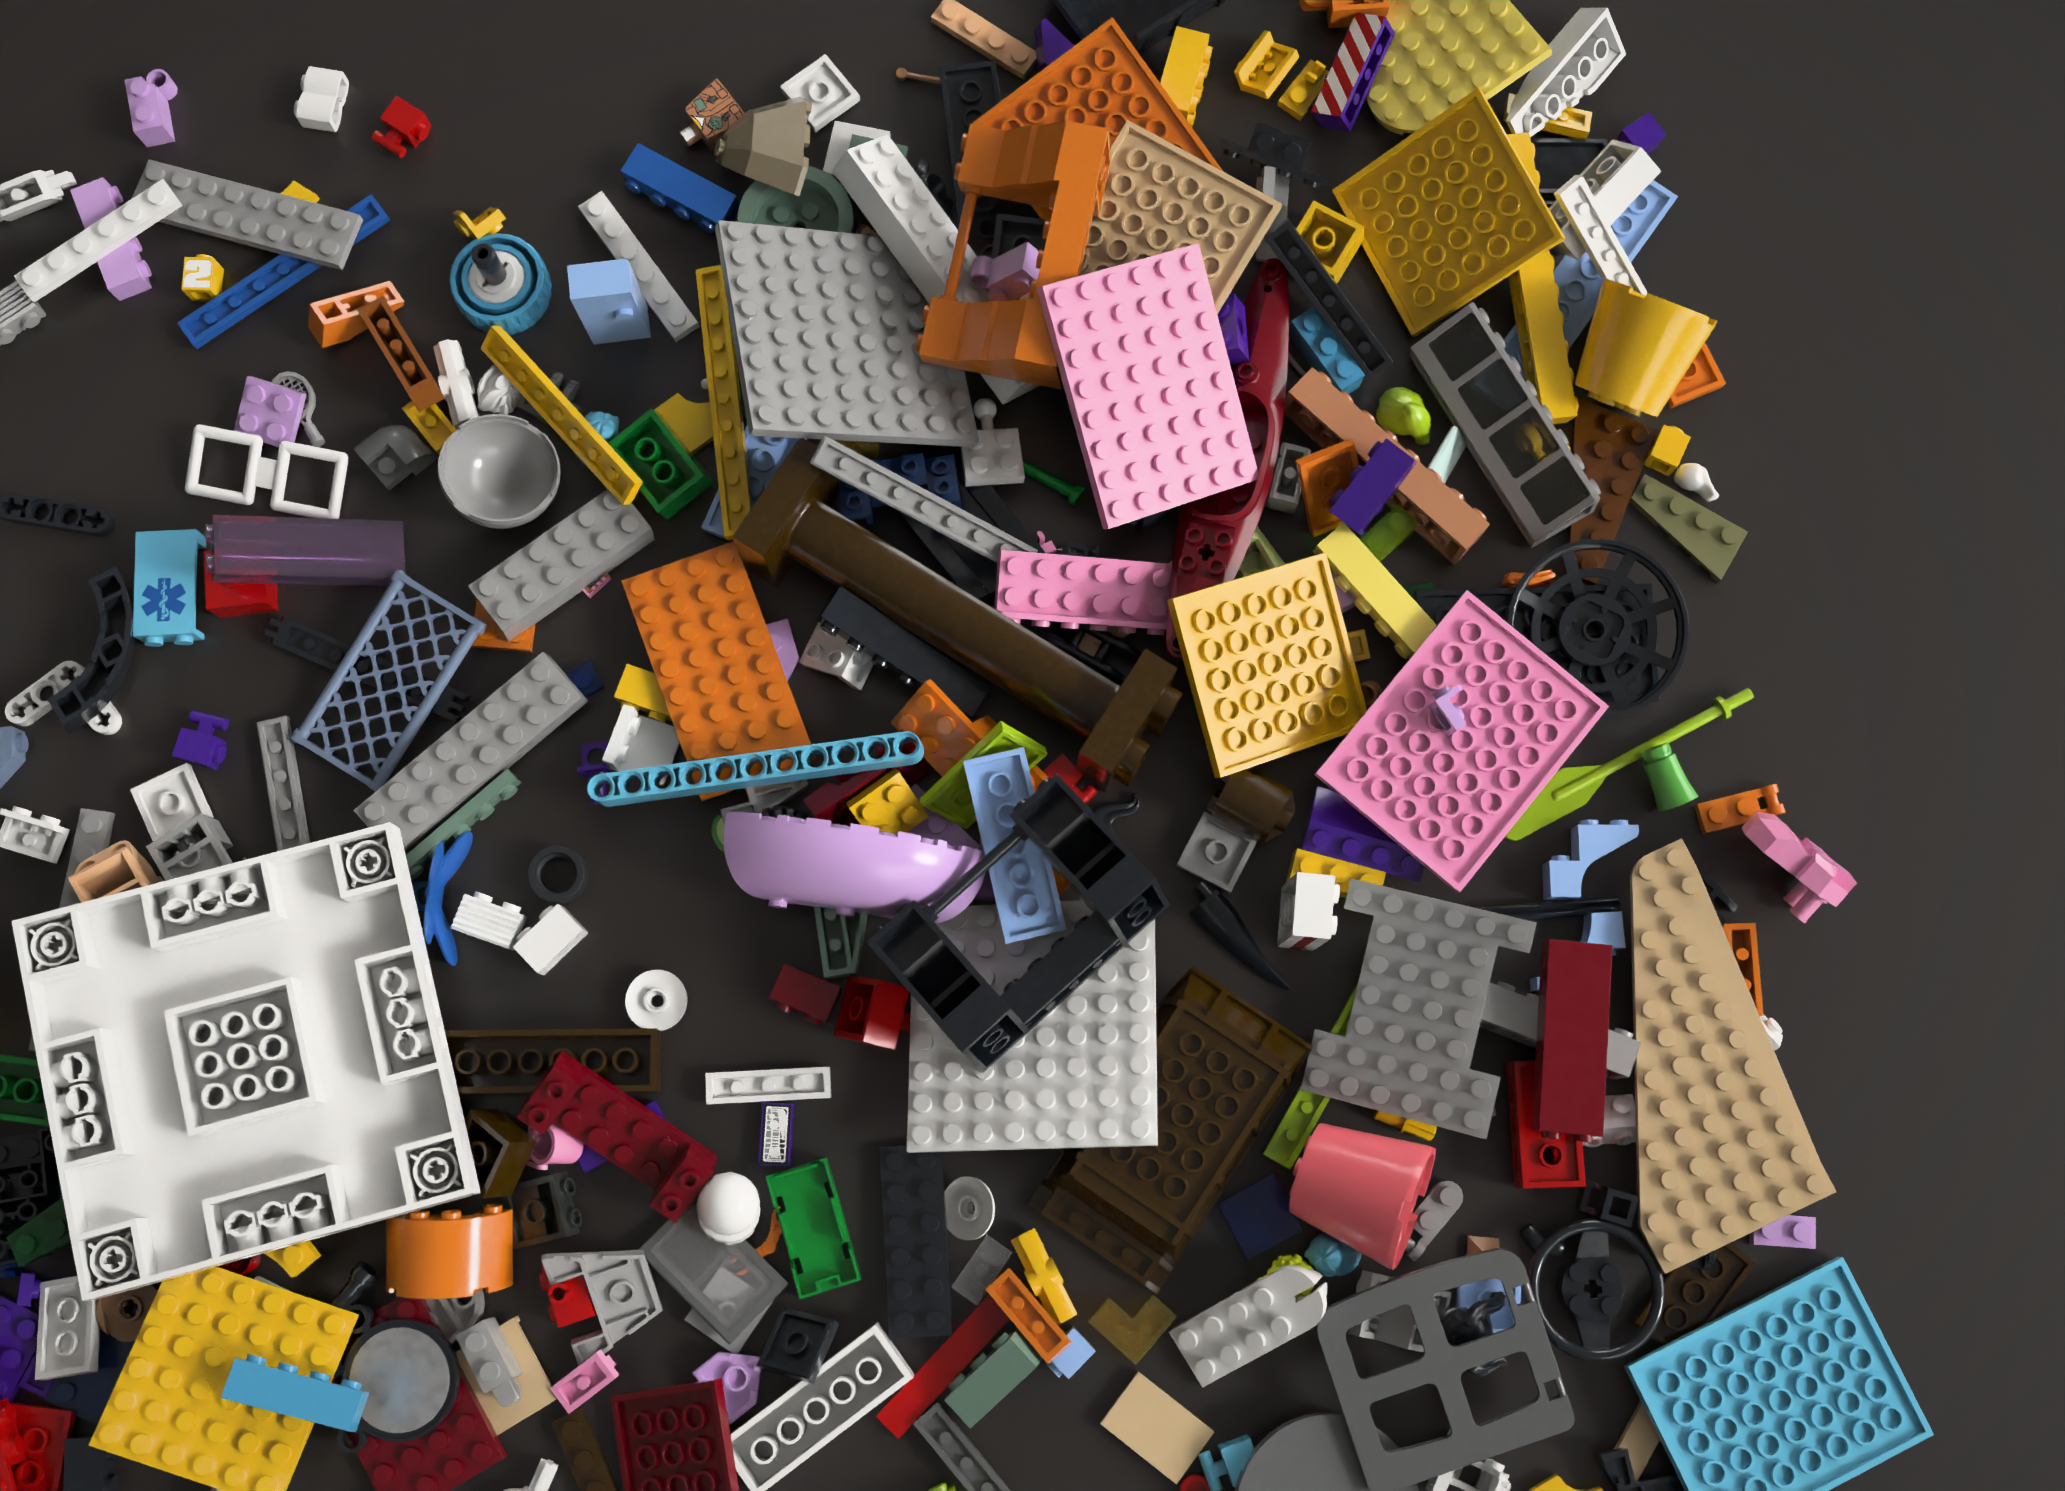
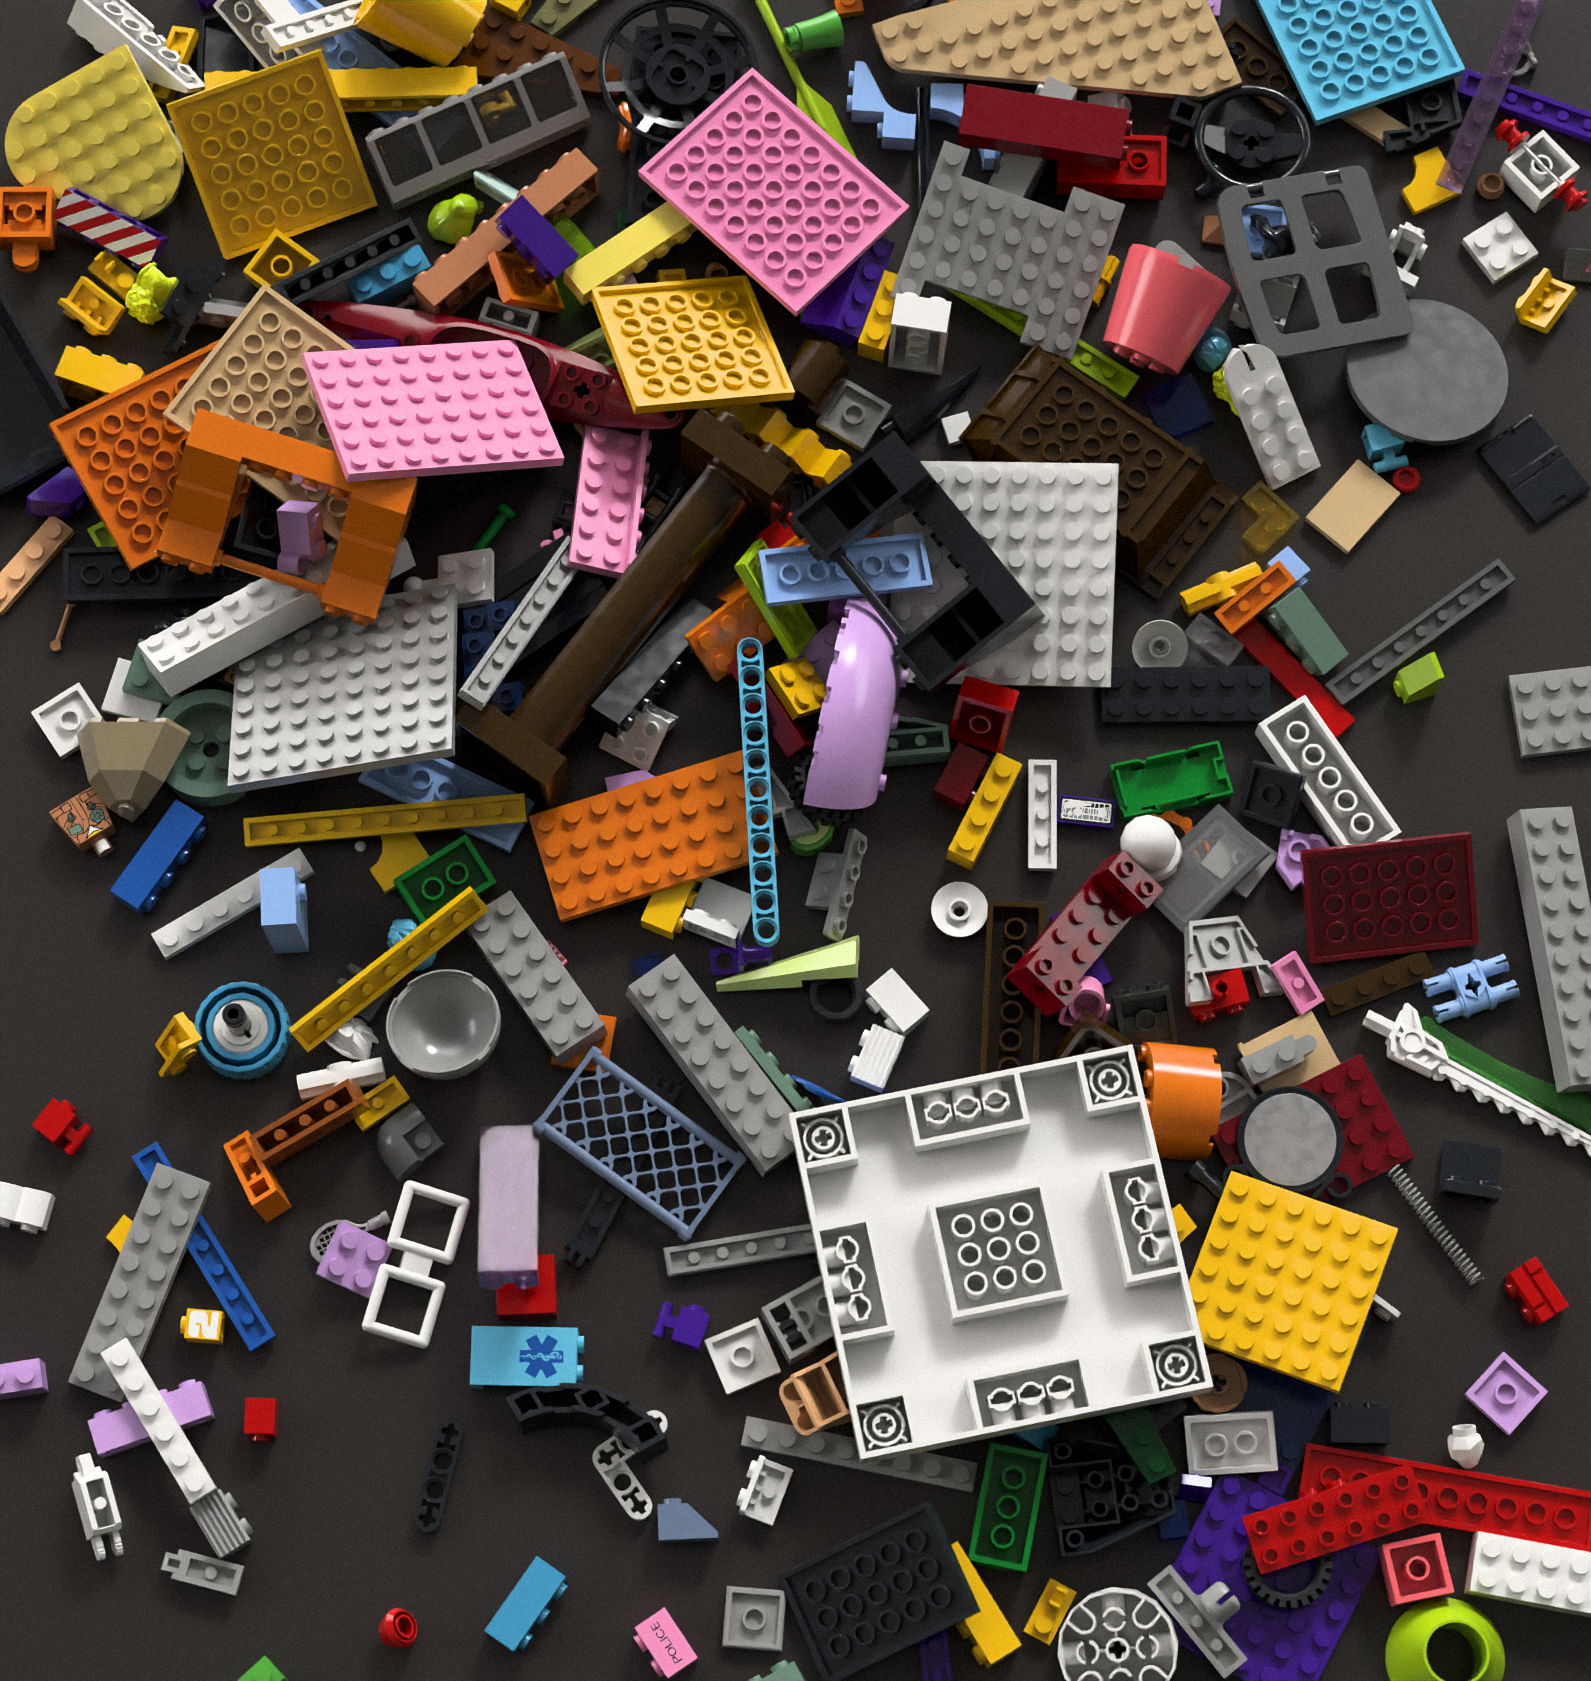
camera: 85 degrees left, 5 degrees down
(111, 340) = (261, 1419): none -> red brick
(295, 1394) = (1300, 1208): dark azure brick -> none
(589, 852) = (826, 962): none -> yellowish green wedge
(680, 866) = (835, 883): none -> light grey bracket
(766, 1020) = (984, 811): none -> yellow brick
(1170, 792) = (800, 445): none -> yellow brick
(1214, 966) = (954, 426): none -> white tile
(1285, 114) = (149, 294): none -> neon yellow hair
(1445, 712) = (751, 197): lavender bracket -> none

